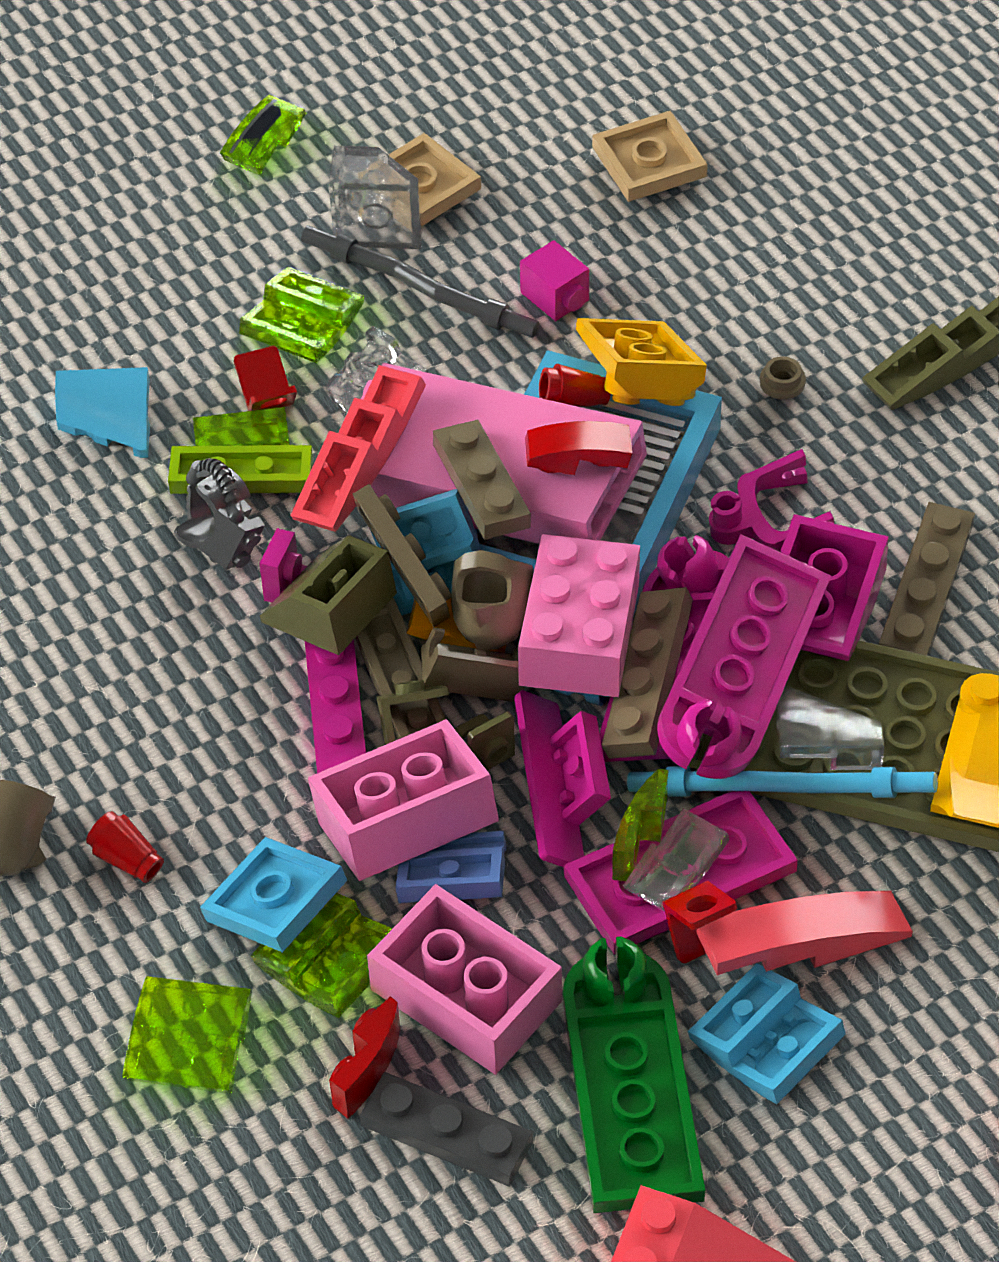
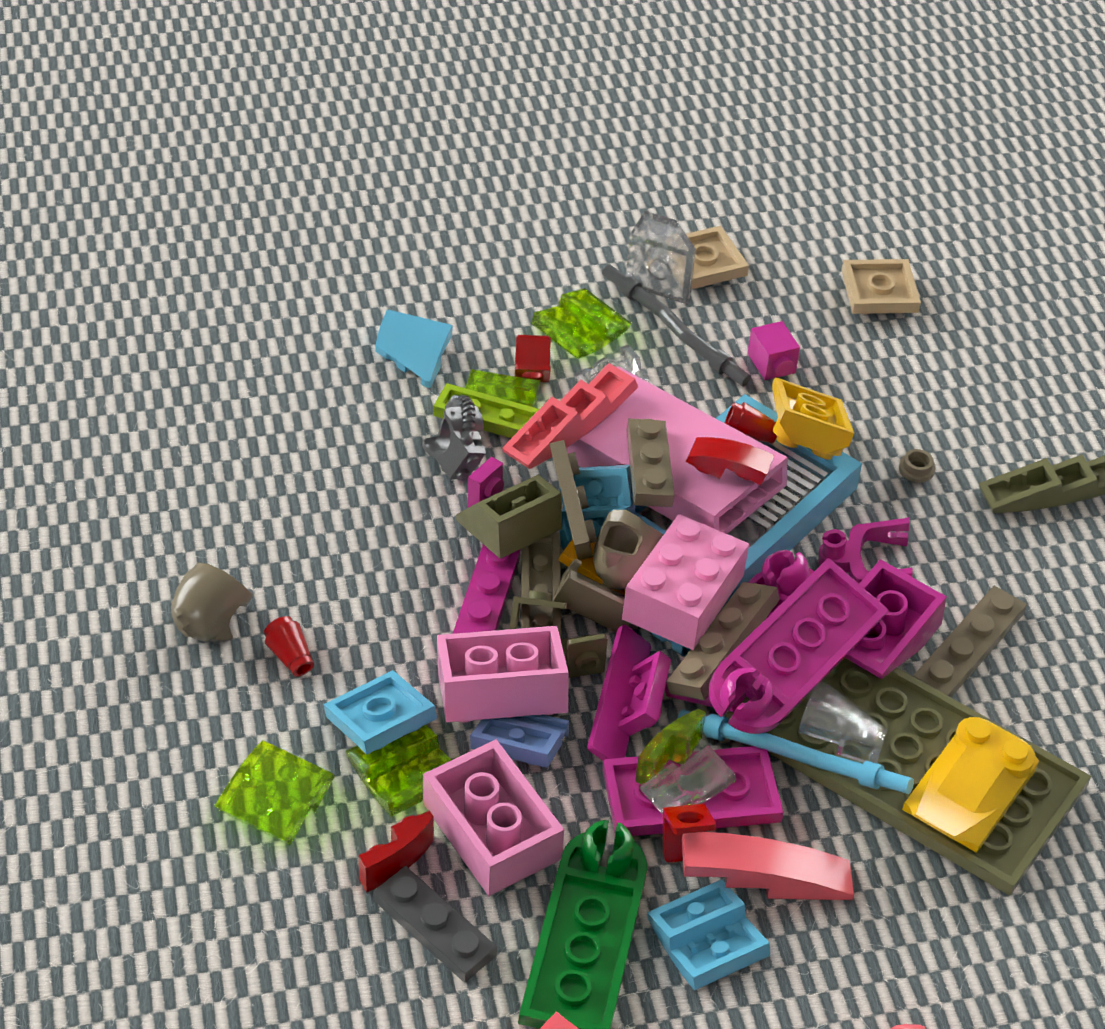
camera: 15 degrees right, 5 degrees down
(260, 132) = (609, 192): clear neon green slope -> none

